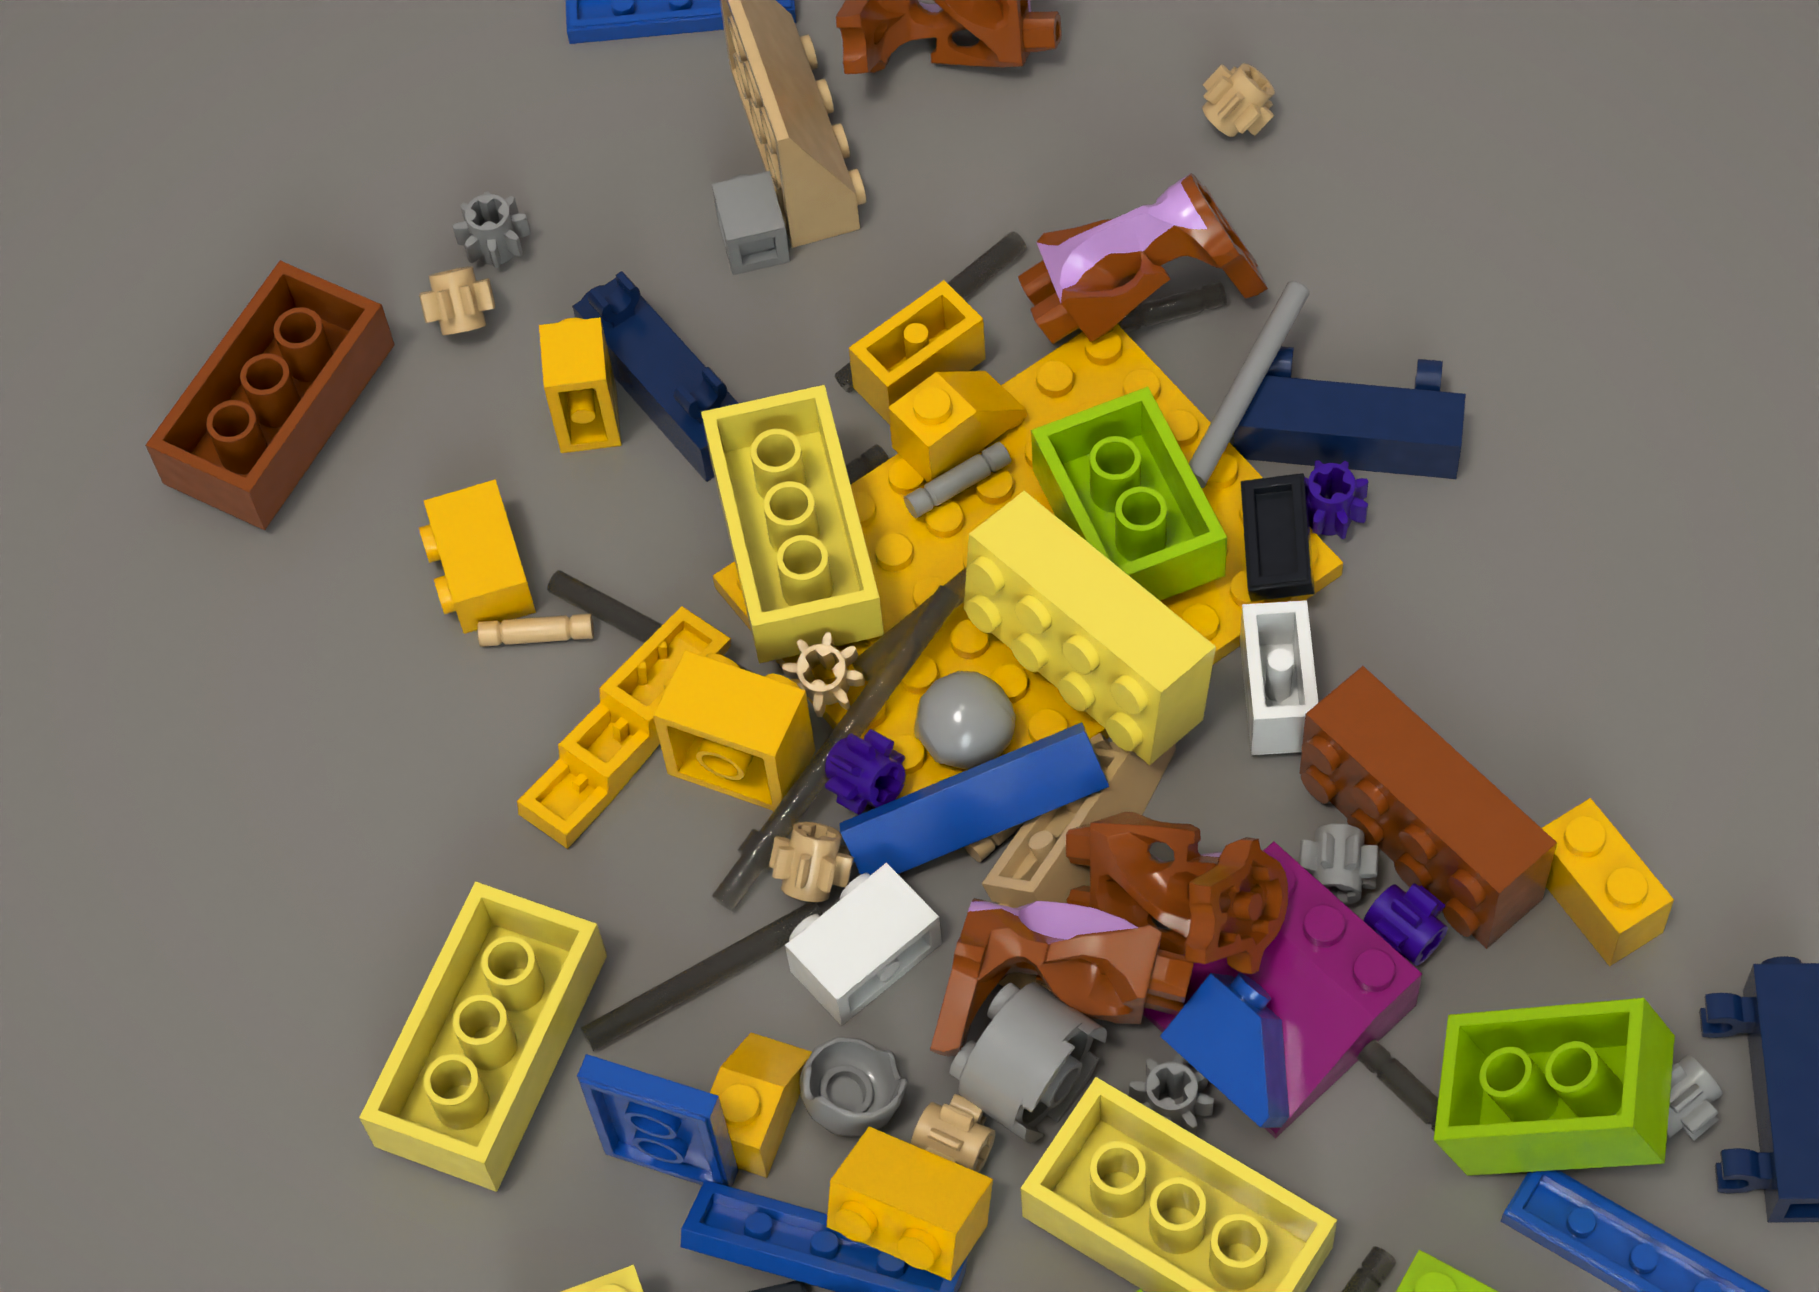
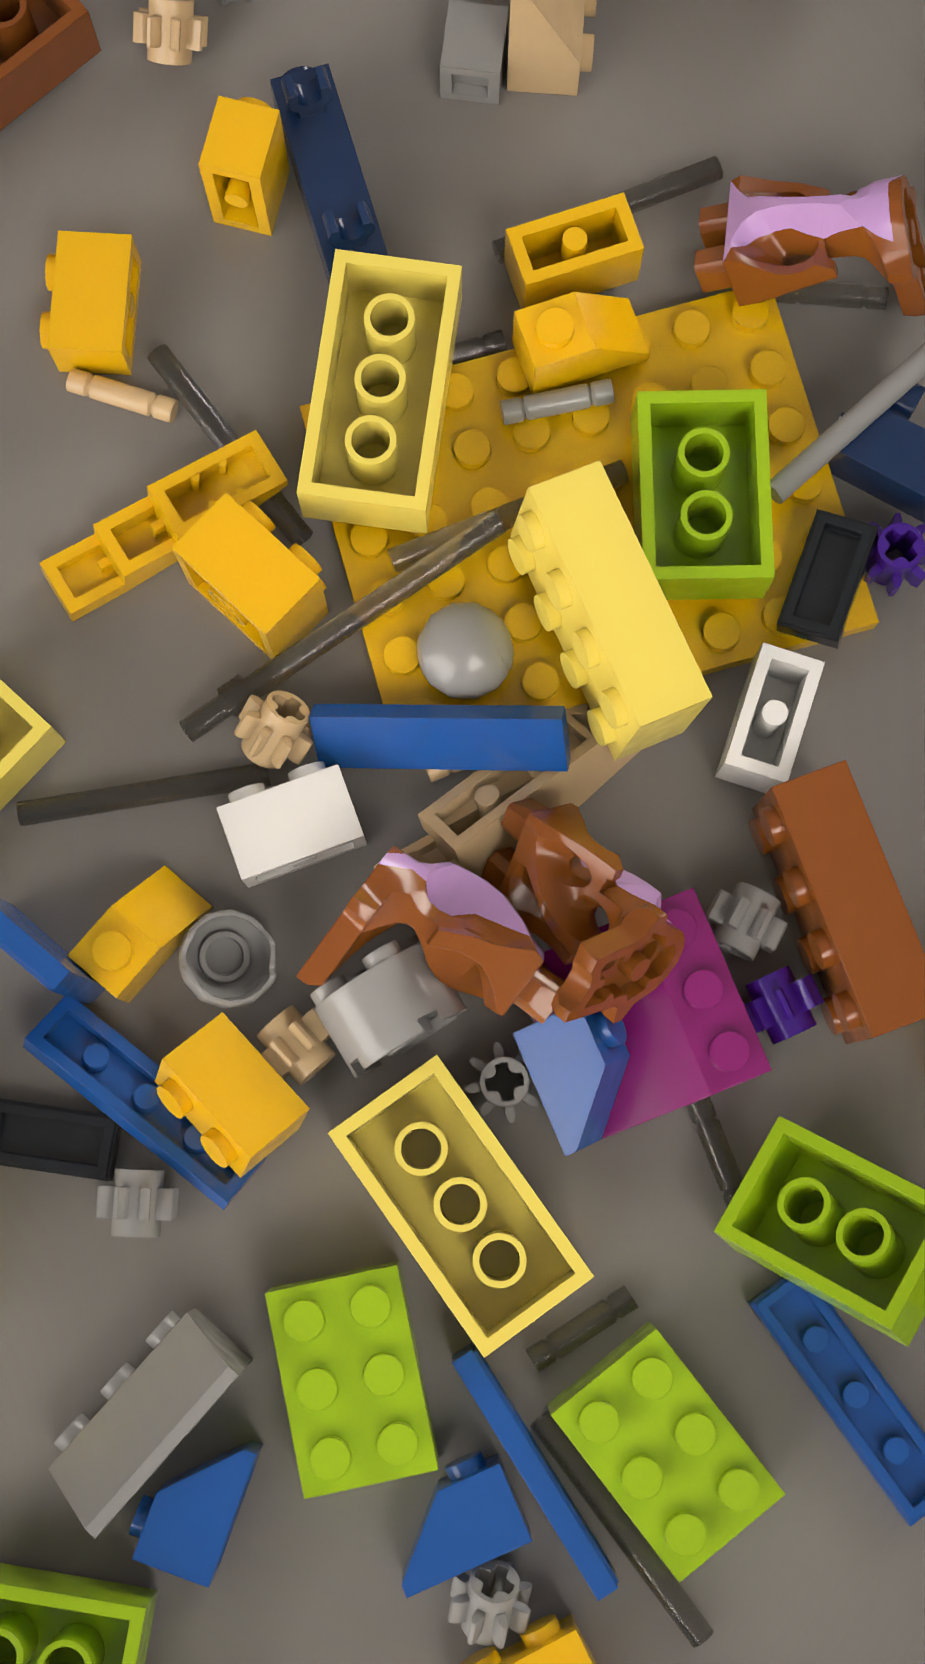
camera: 15 degrees right, 20 degrees up
(830, 659) = (367, 566): tan gear -> none
(864, 771) = (355, 664): dark purple gear -> none

